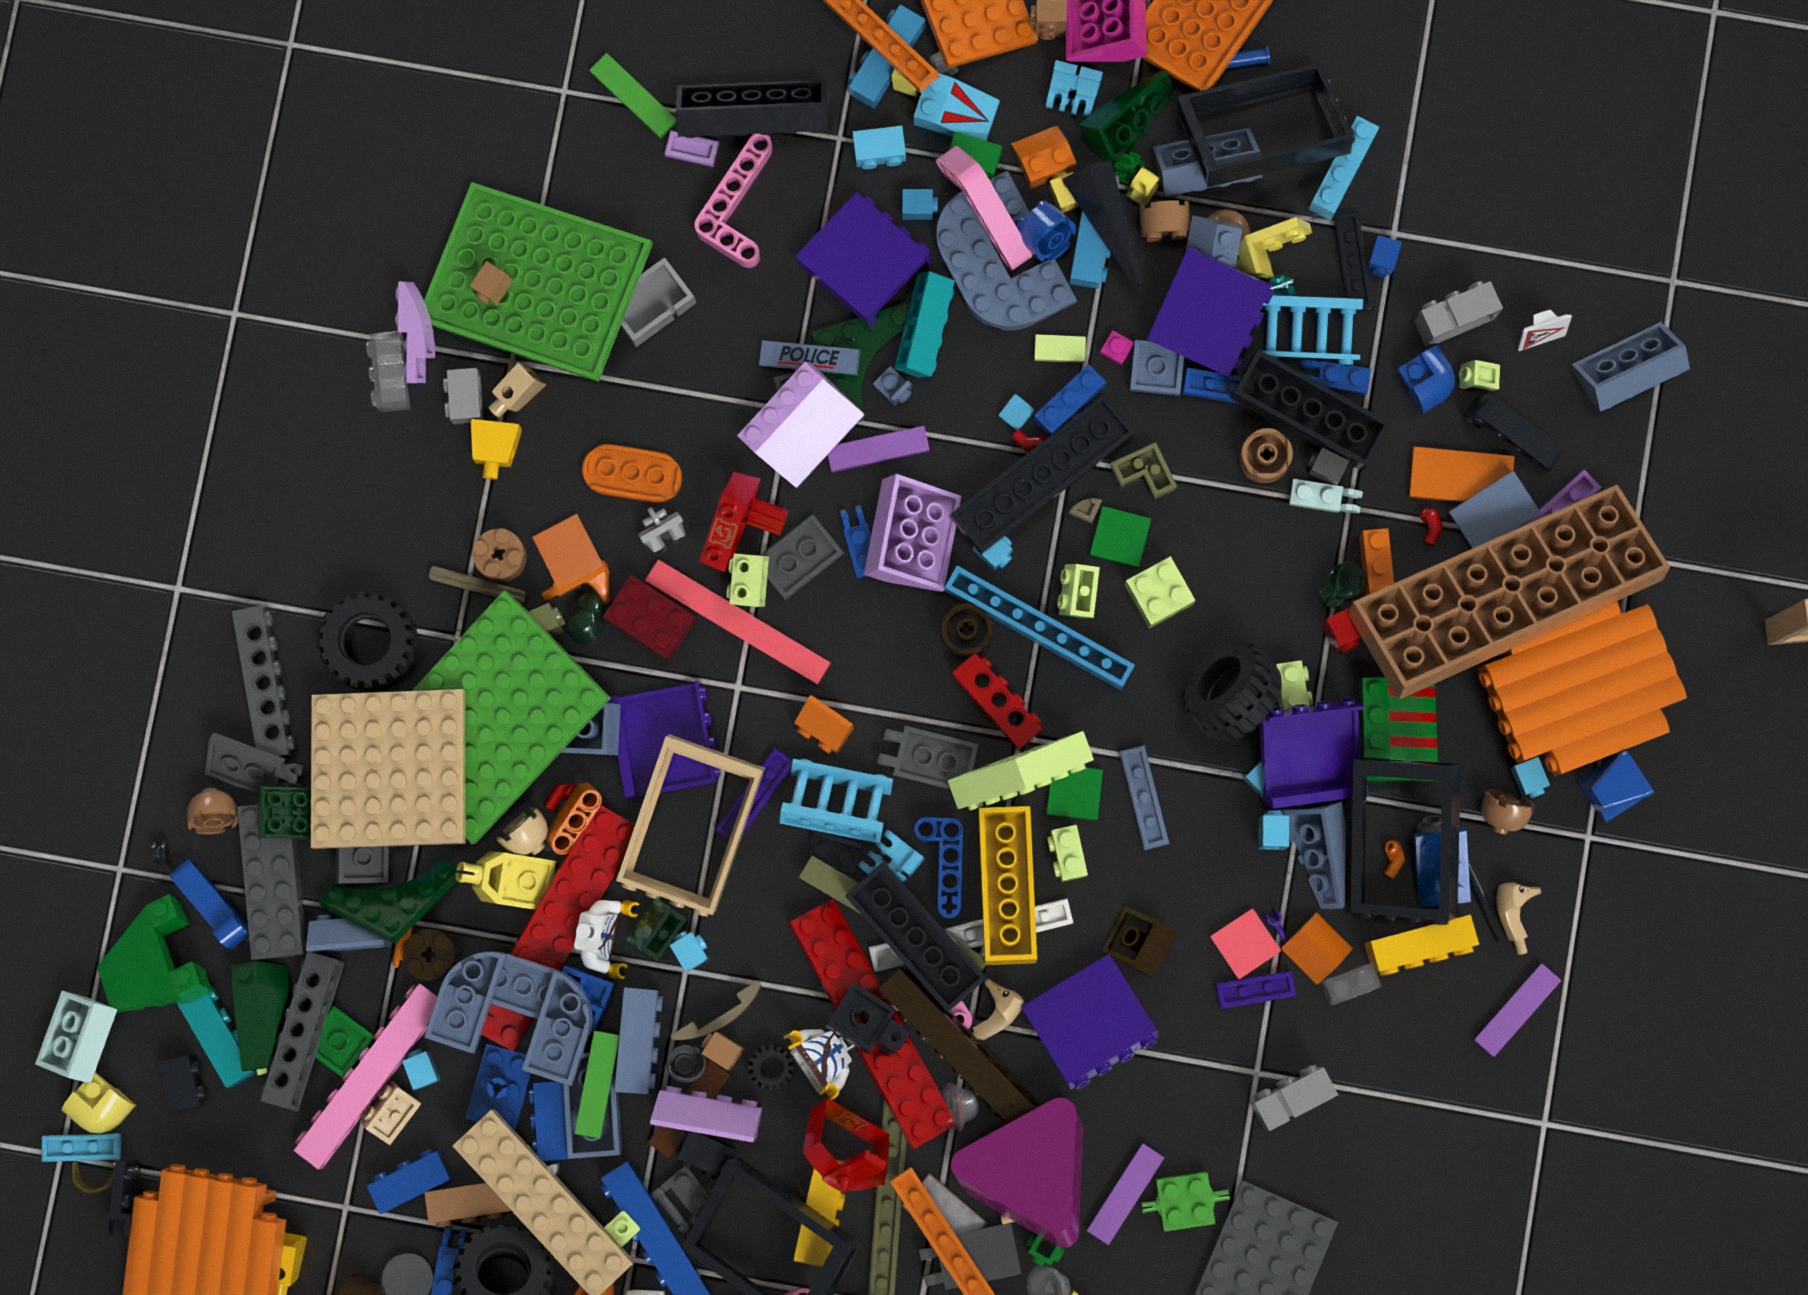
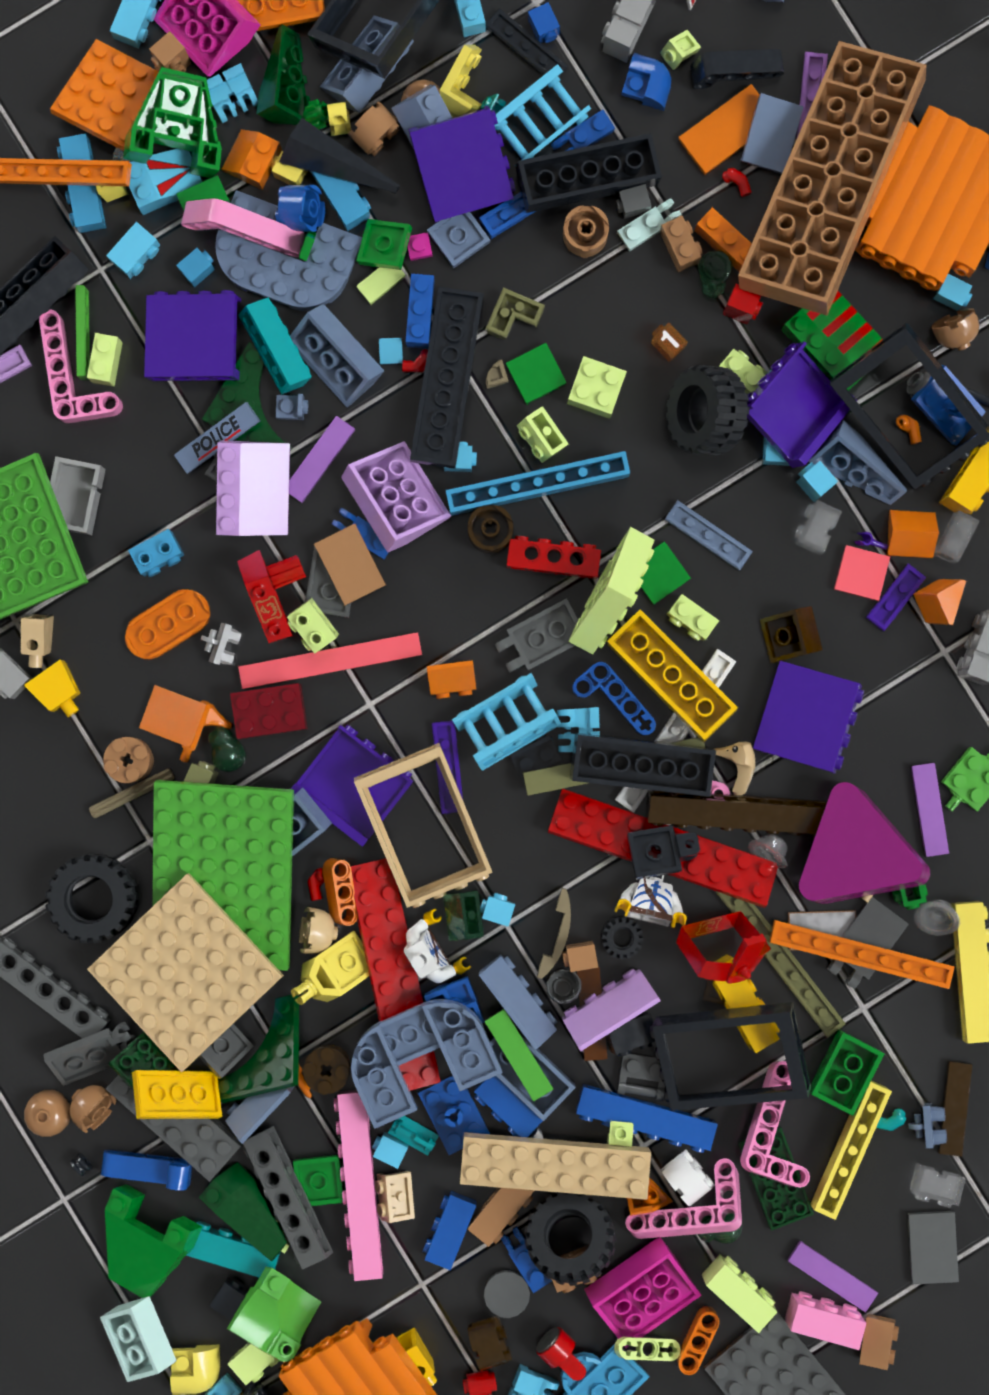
camera: 45 degrees left, 5 degrees up
(156, 1140) = (250, 1363): none -> yellowish green brick
(171, 785) = (47, 1113): none -> medium nougat cylinder
(204, 1118) = (274, 1315): none -> bright green slope
(290, 862) = (176, 1094): none -> yellow tile
(451, 1074) = (414, 1134): none -> teal hinge
(675, 408) = (156, 553): none -> dark azure brick
(775, 214) = (104, 359): none -> yellowish green brick
(777, 177) = (82, 332): none -> bright green tile
(824, 557) = (350, 564): none -> medium nougat tile
(967, 376) = (335, 355): none -> sand blue slope
(1011, 69) = (179, 117): none -> green wedge
(1023, 266) = (307, 245): none -> green tile
(1089, 321) = (384, 244): none -> green plate
(1234, 873) = (814, 531): none -> clear brick
(1254, 607) = (668, 341): none -> clear orange brick
(1288, 1024) = (940, 600): none -> orange slope
(1336, 534) = (680, 243): none -> medium nougat brick

